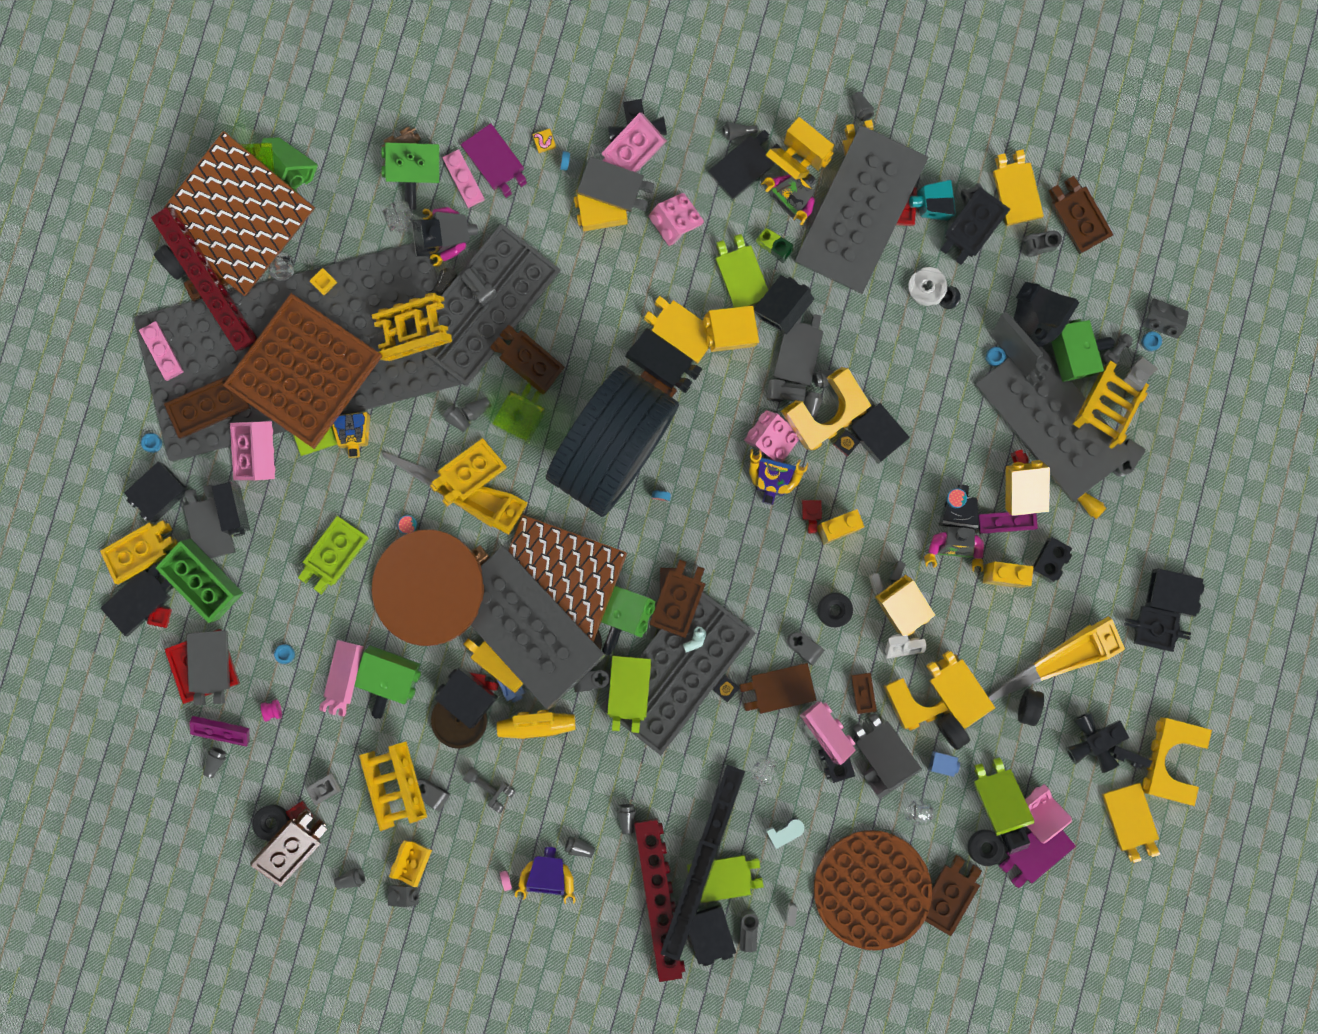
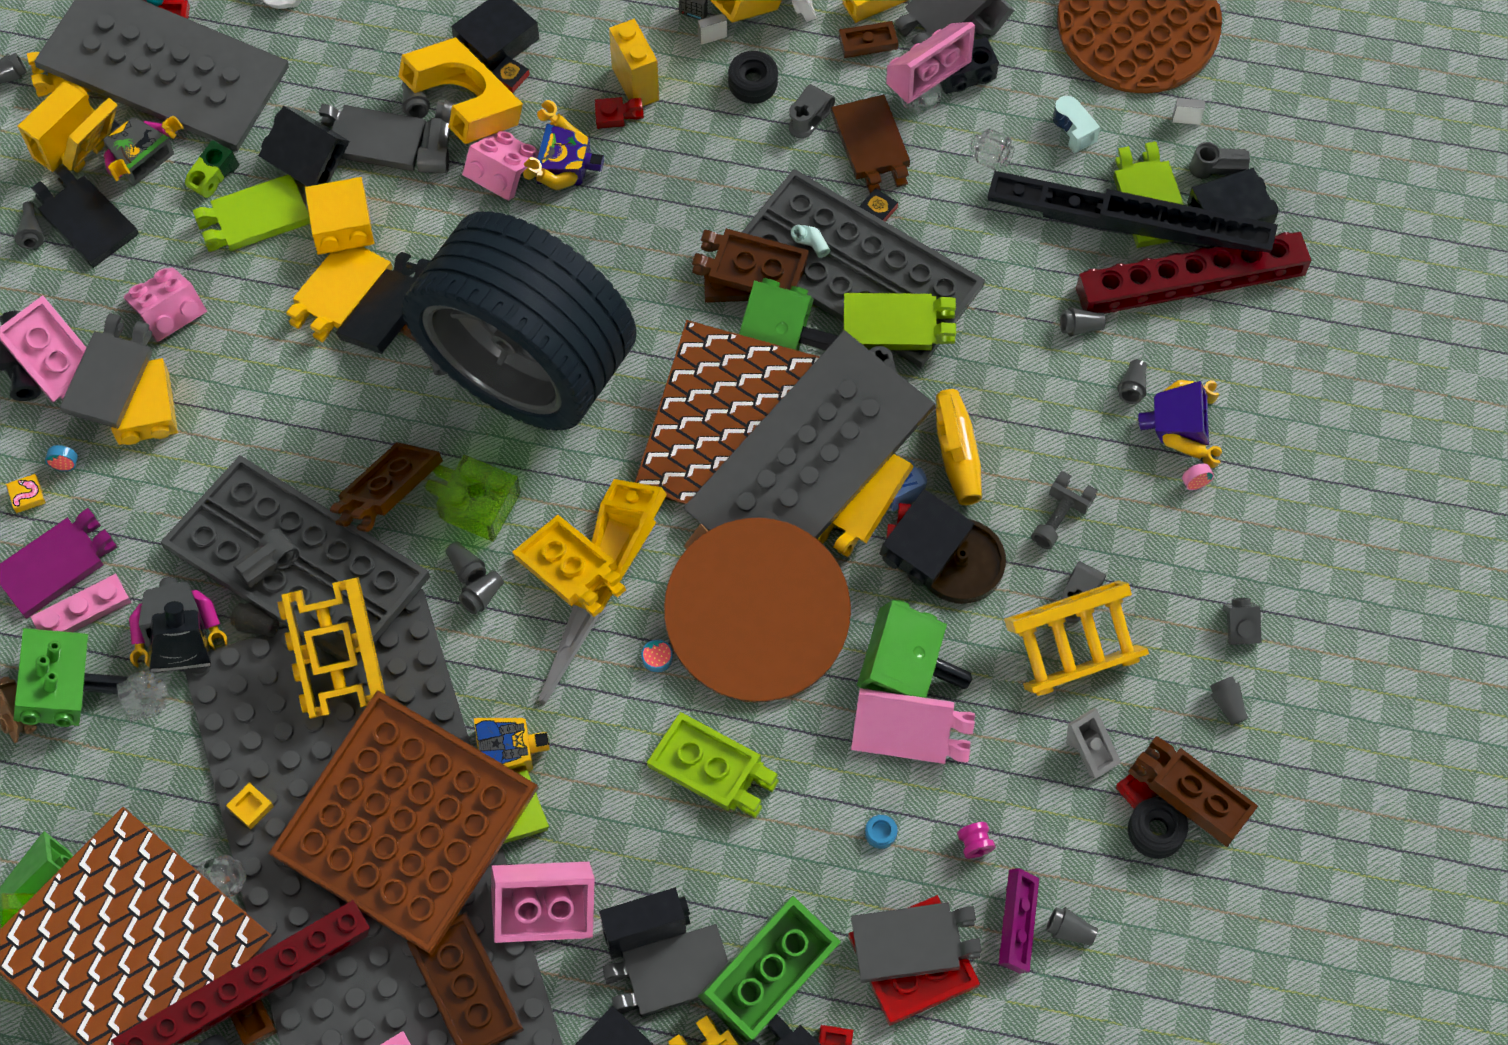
camera: 90 degrees left, 20 degrees down
(410, 862) = (1191, 609): yellow bracket -> none

